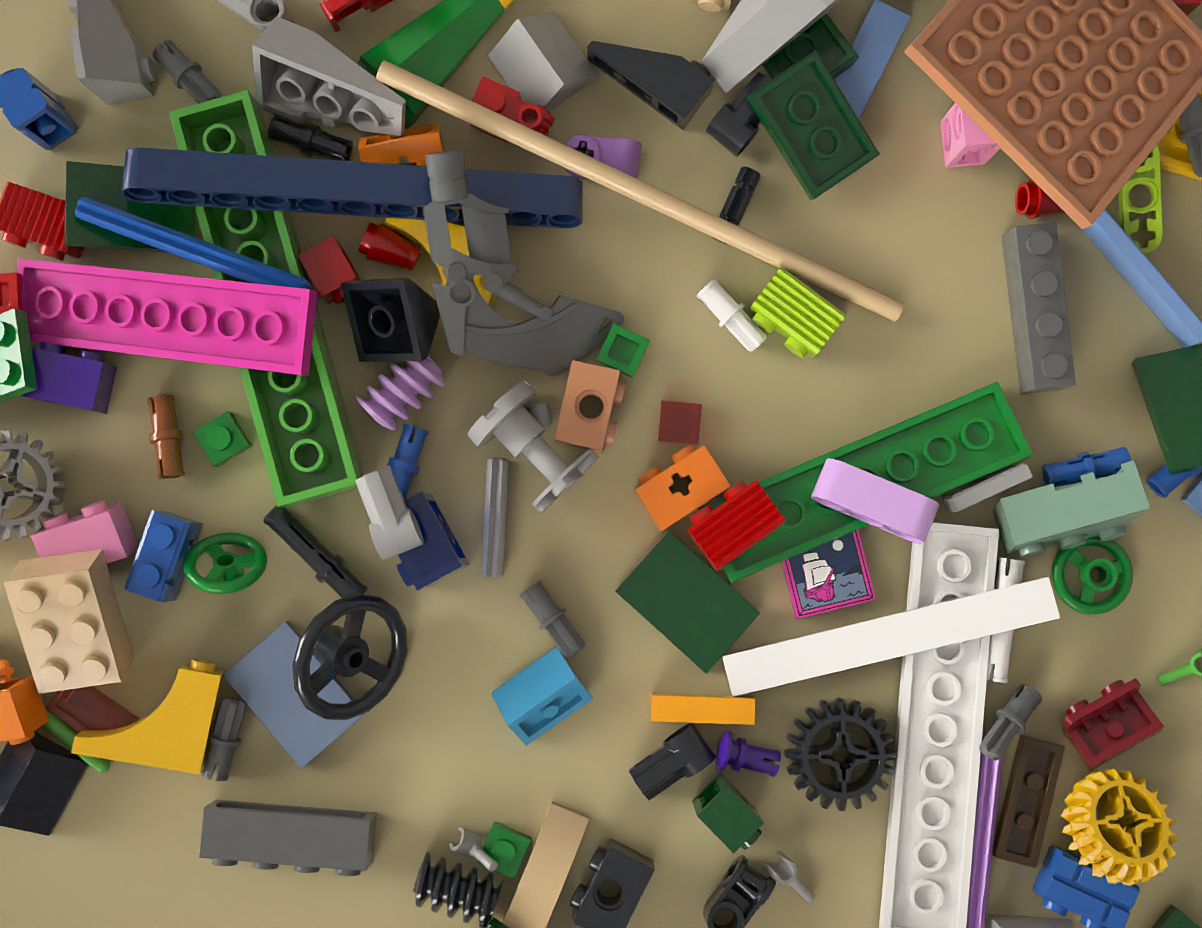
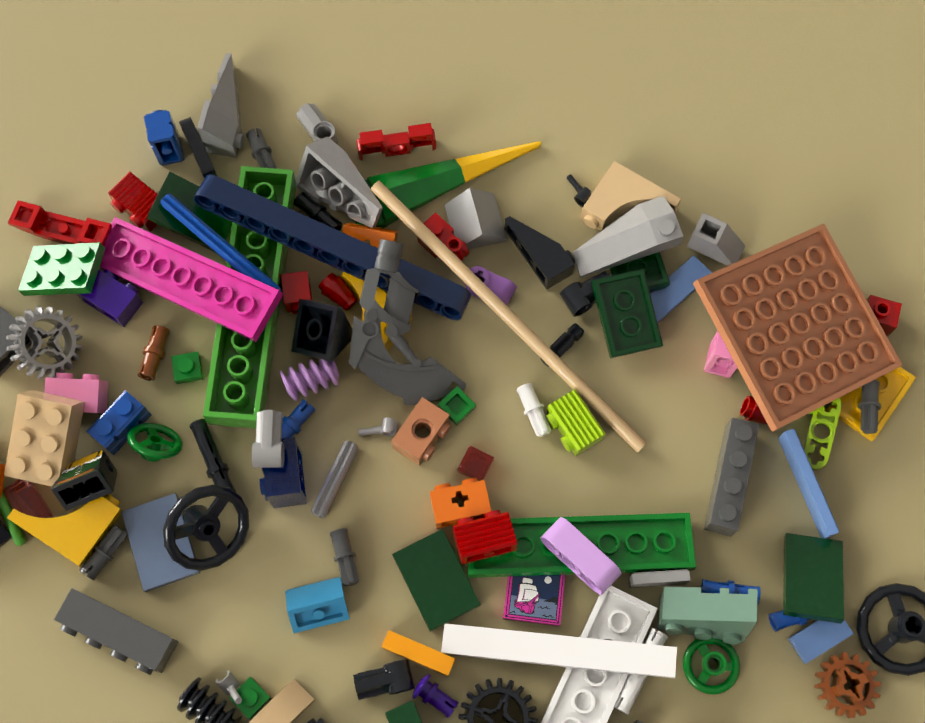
camera: 15 degrees right, 15 degrees down
(92, 106) = (197, 147): none -> black beam
(155, 657) = (85, 480): none -> black torso
(522, 434) = (372, 431): light grey piece -> none

